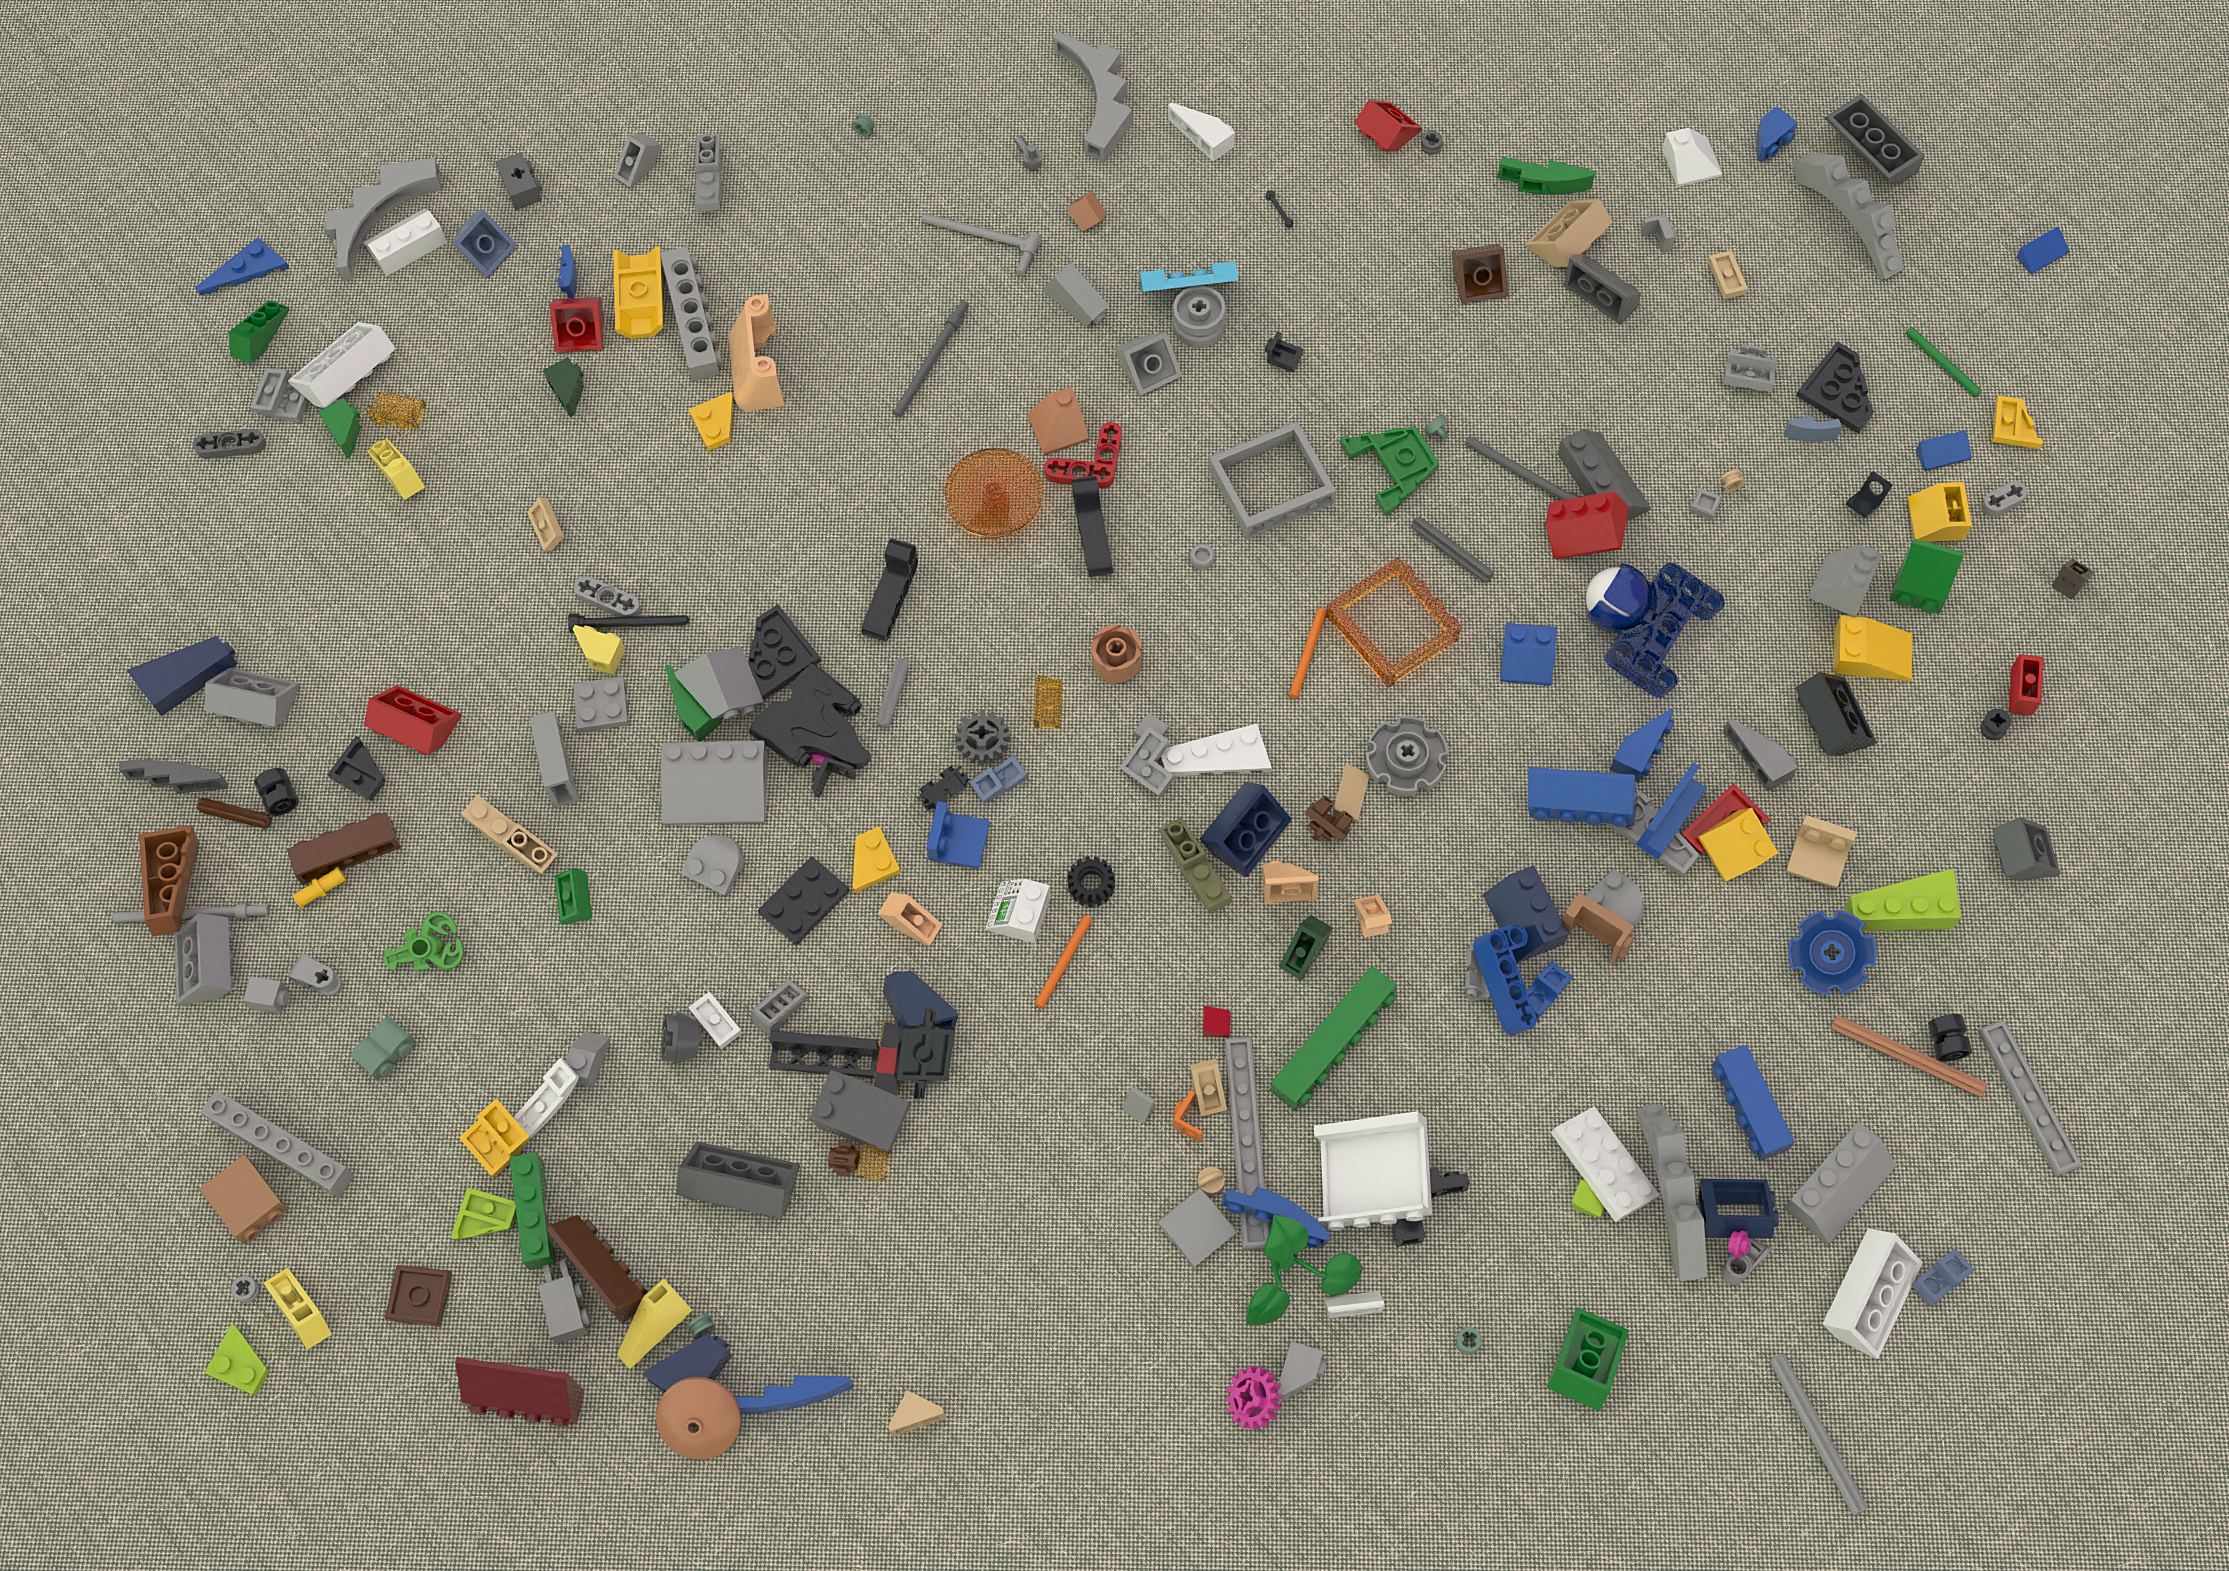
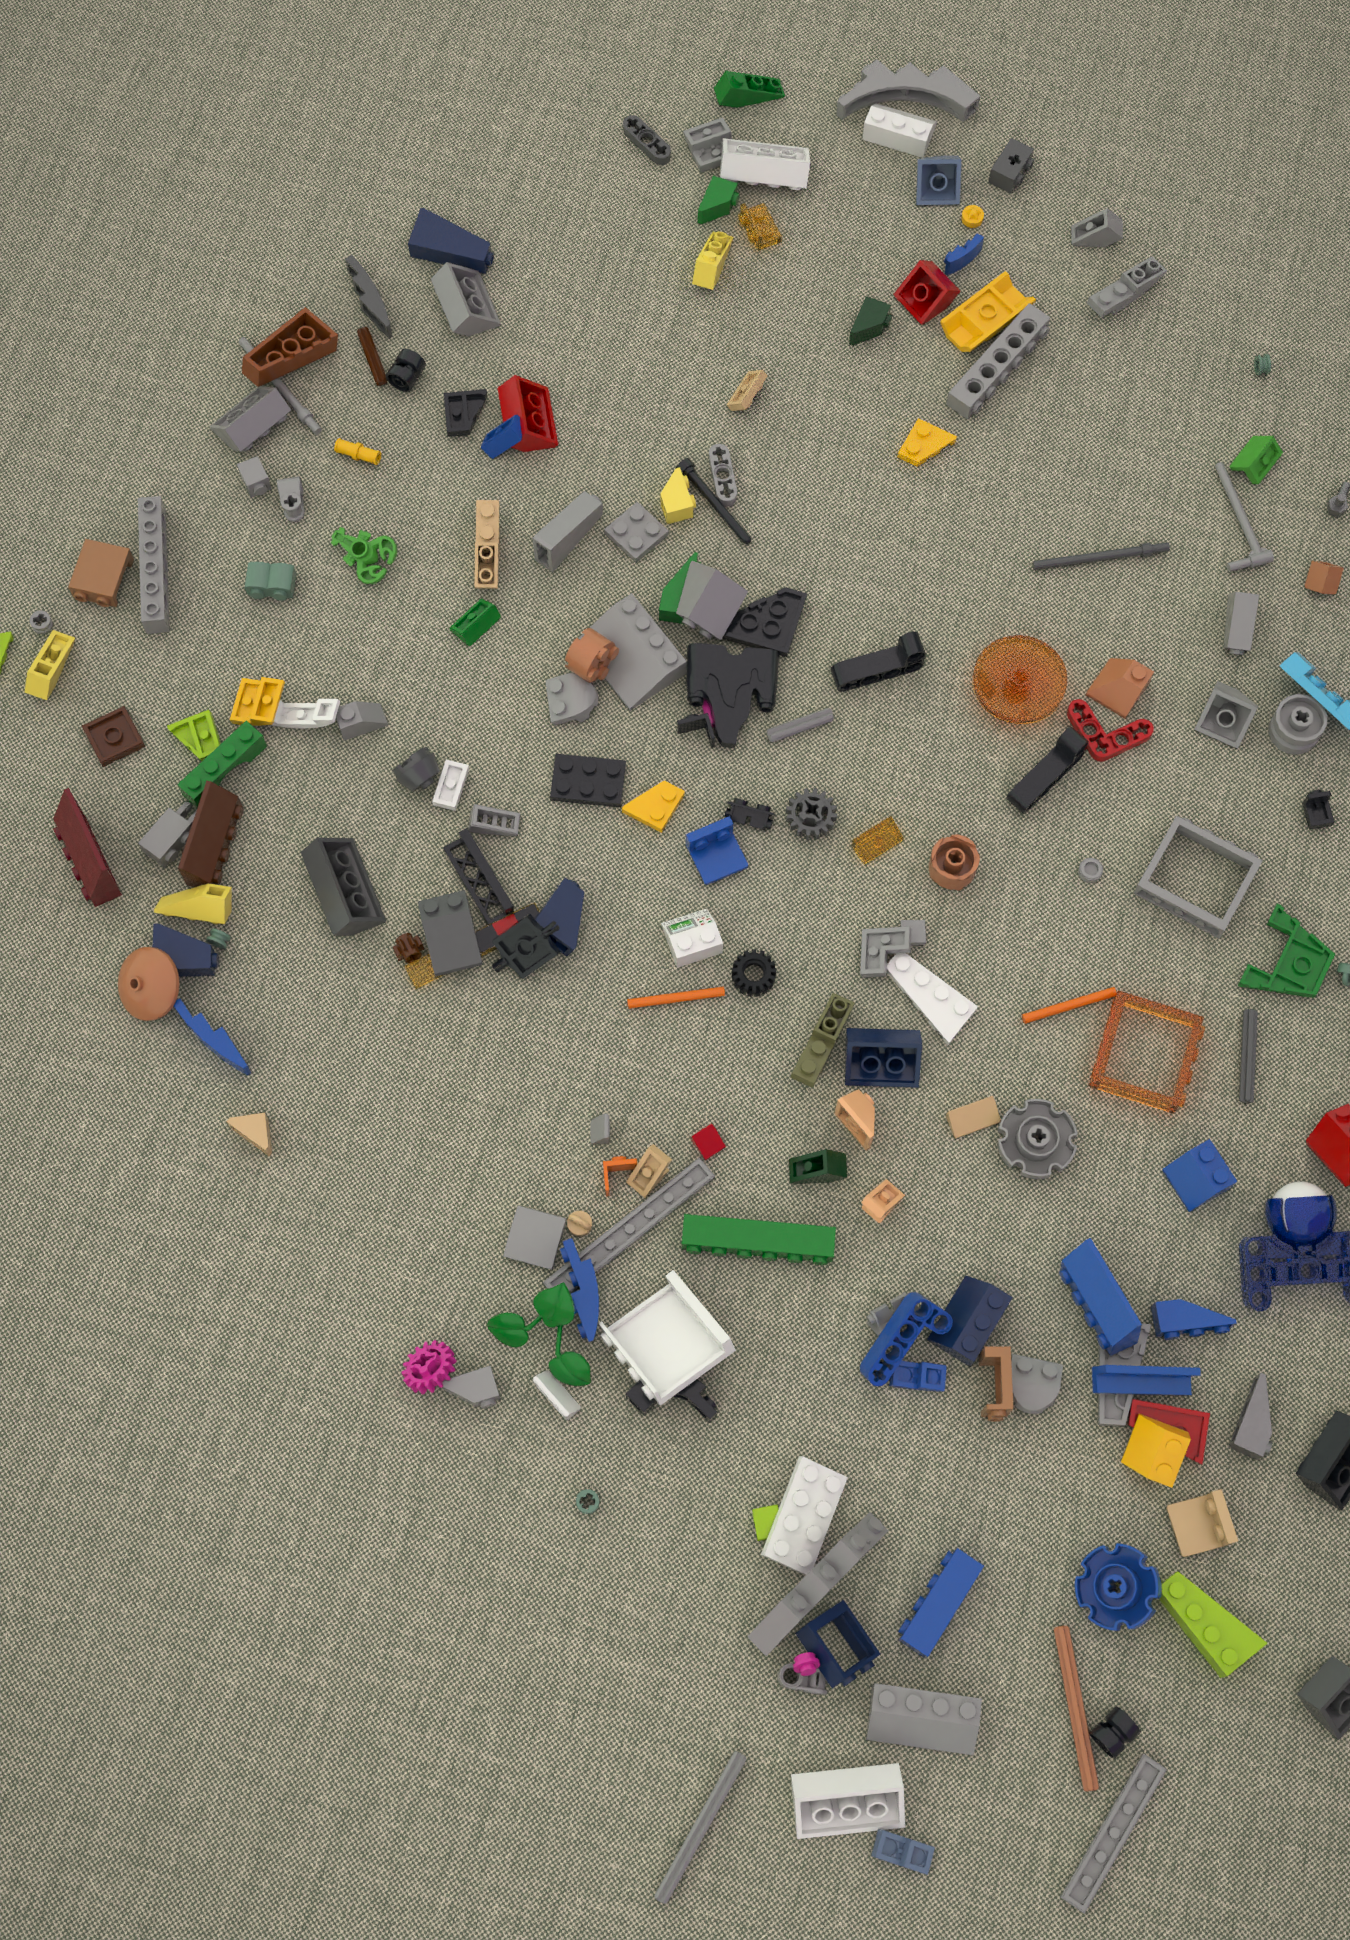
camera: 50 degrees right, 5 degrees up
(243, 267) = (797, 44): blue wing -> none
(343, 847) = (397, 444): reddish brown brick -> none
(416, 751) = (502, 437): none -> blue slope
(537, 242) = (972, 216): none -> yellow tile
(693, 816) = (591, 656): none -> nougat brick
(754, 377) = (1017, 413): light nougat windscreen -> none
(910, 918) = (627, 864): light nougat slope -> none
(941, 185) = (1257, 457): none -> bright green panel
(999, 780) = (784, 849): sand blue slope -> none
(1319, 813) = (932, 1114): reddish brown hips -> none
(1588, 1359) = (635, 1603): green slope -> none

